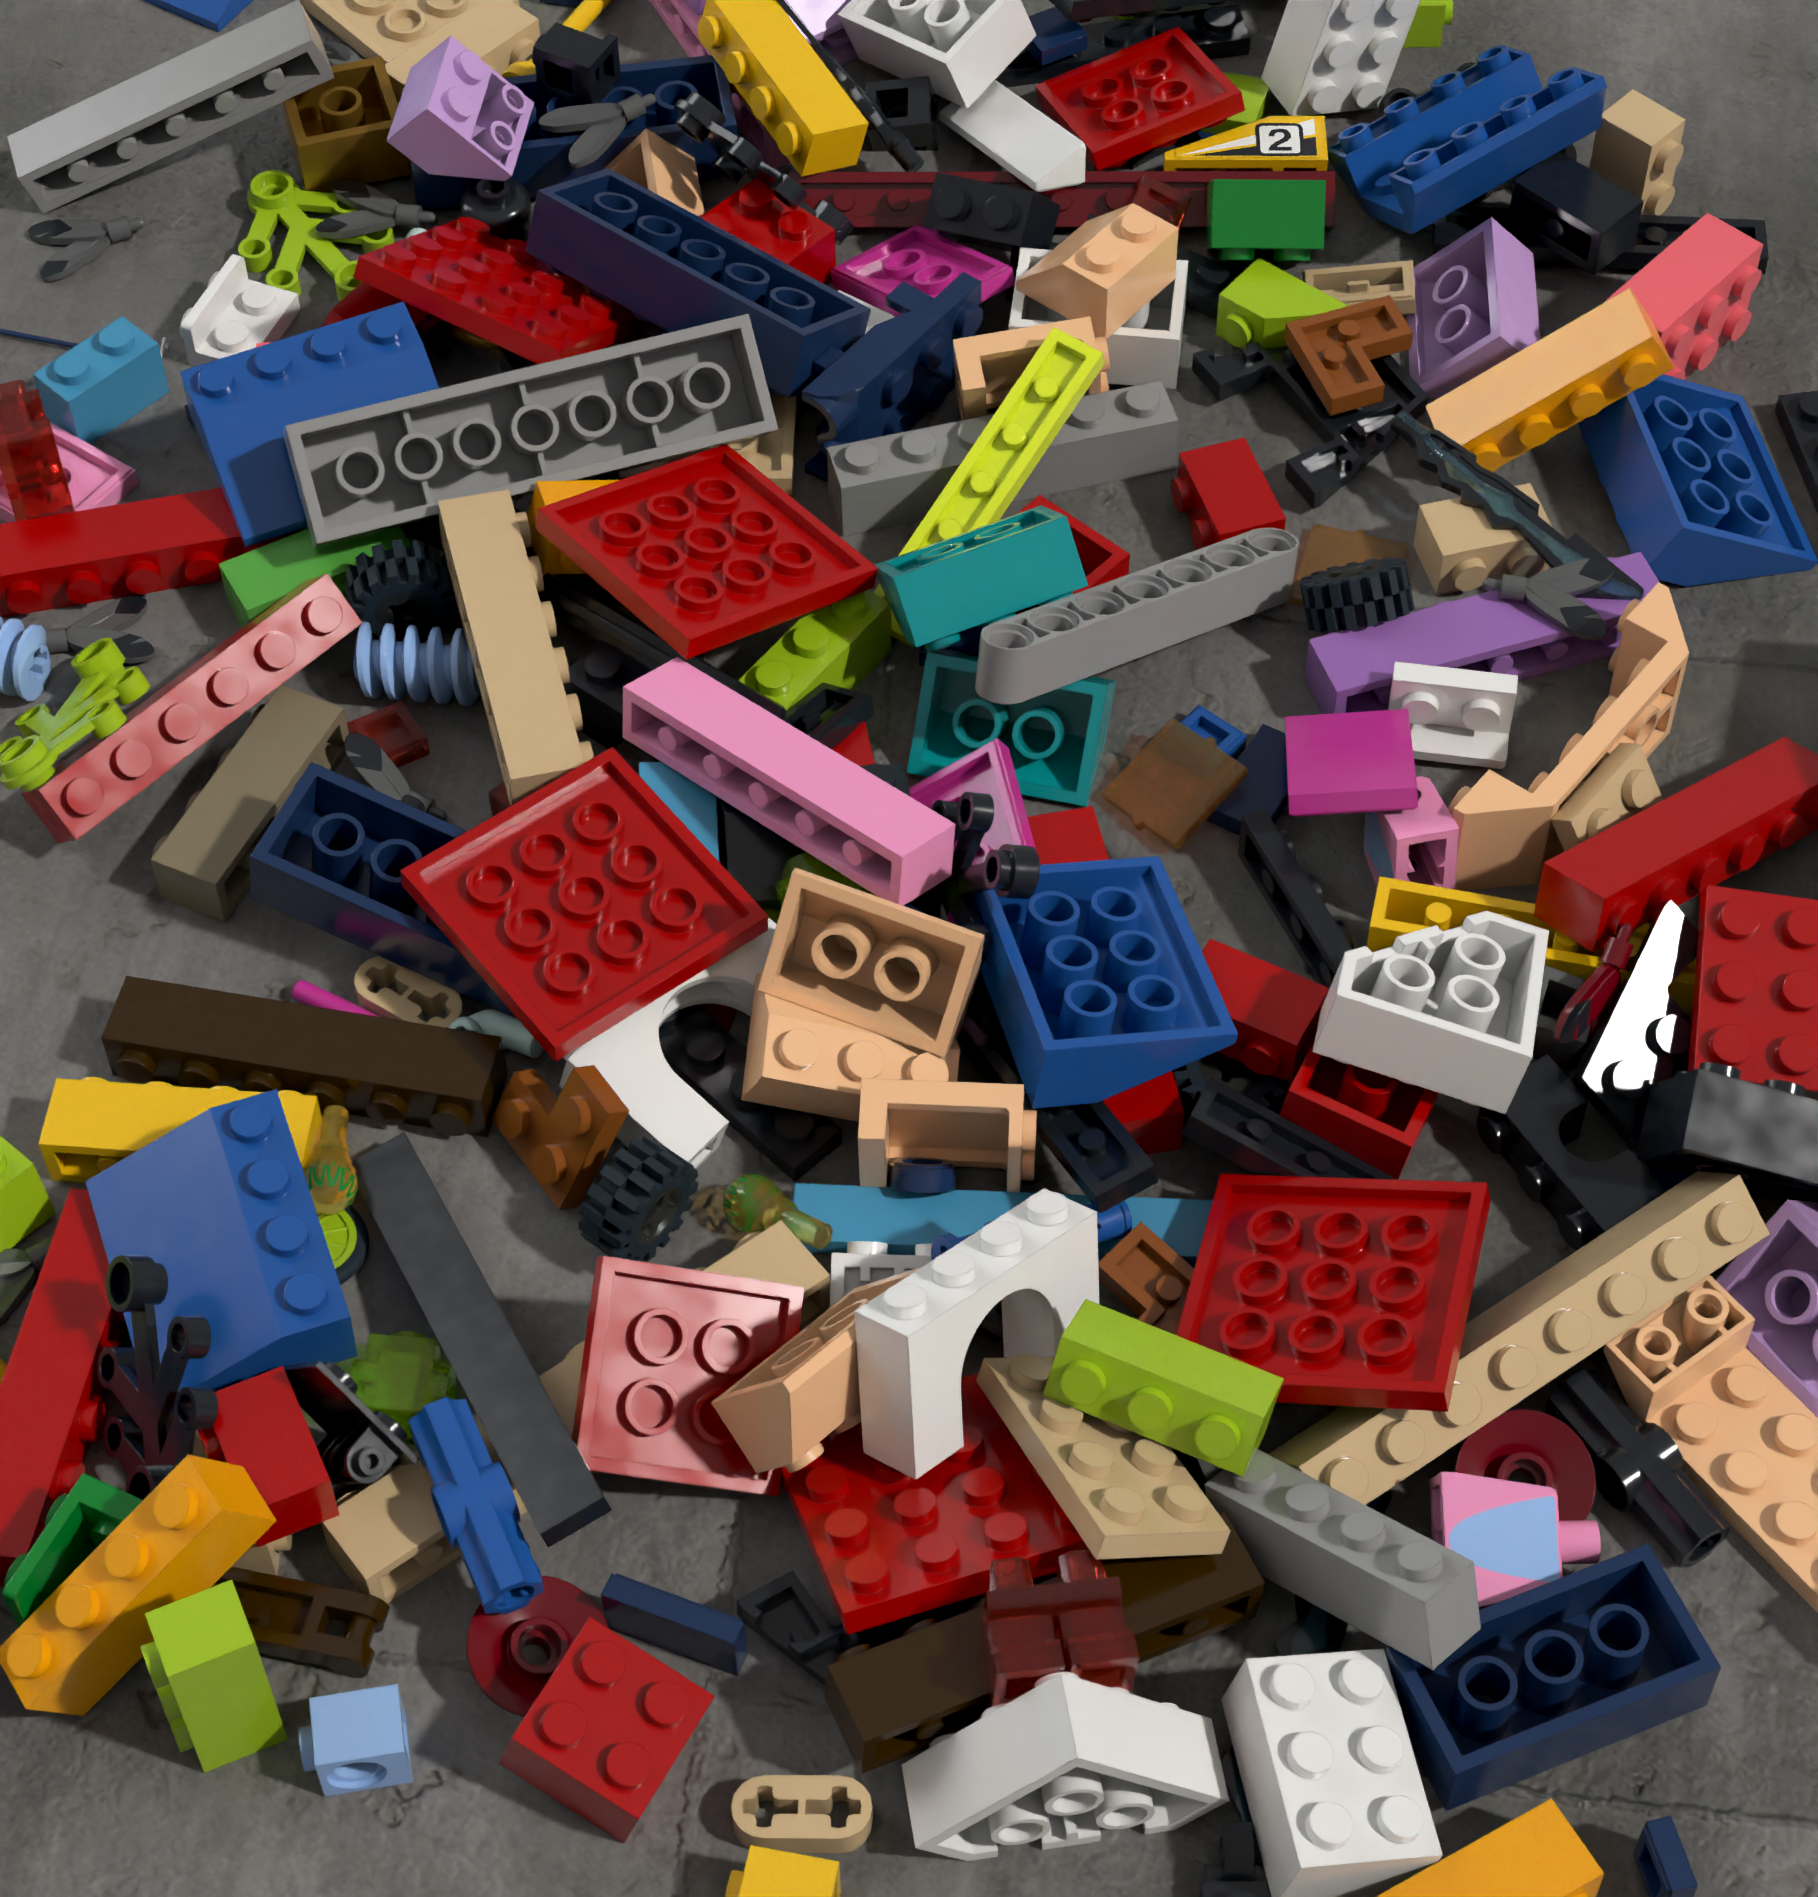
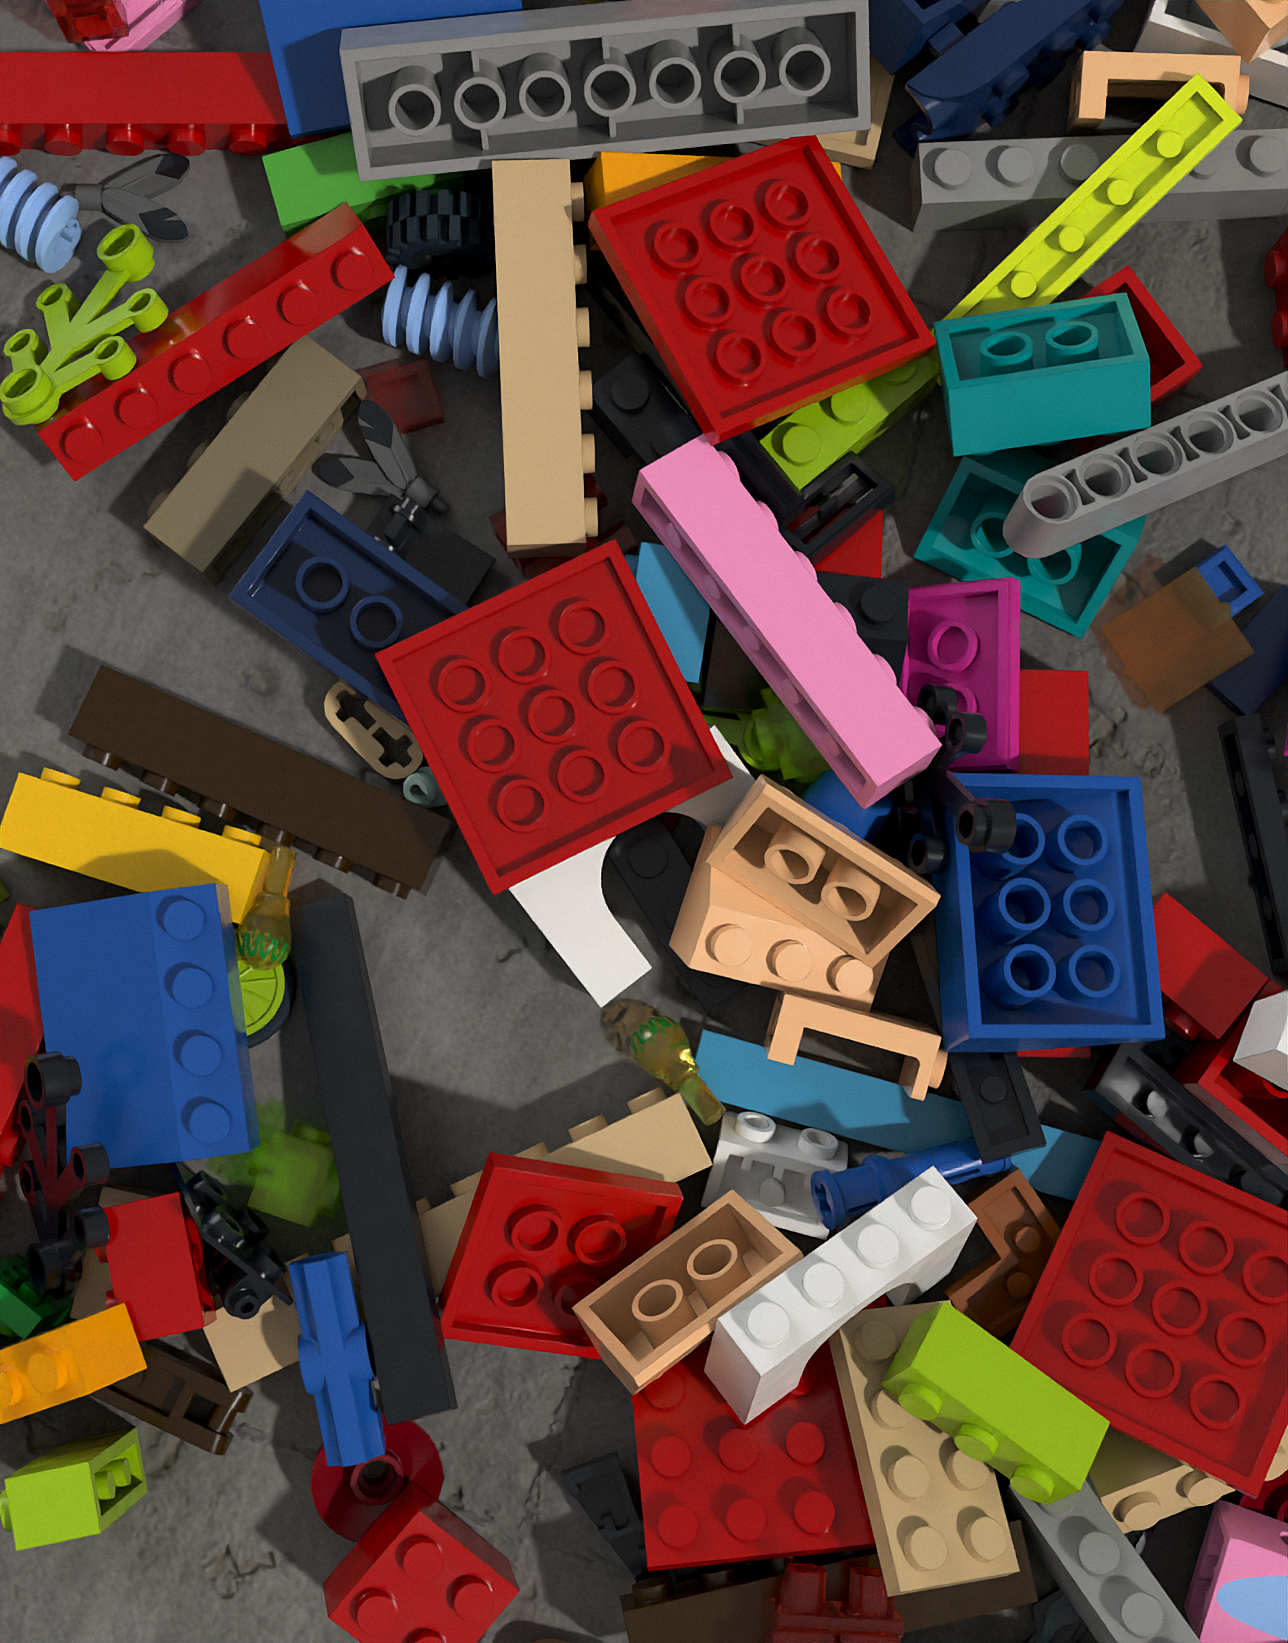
camera: 10 degrees right, 30 degrees up
(312, 995) = (304, 718): dark pink piece -> none
(357, 1740) = (203, 1531): light blue brick -> none
(561, 1136) = (491, 946): dark orange plate -> none
(638, 1201) = (549, 1037): black wheel -> none
(674, 1623) = (502, 1479): dark blue tile -> none
(922, 1175) = (826, 1056): dark blue tile -> none

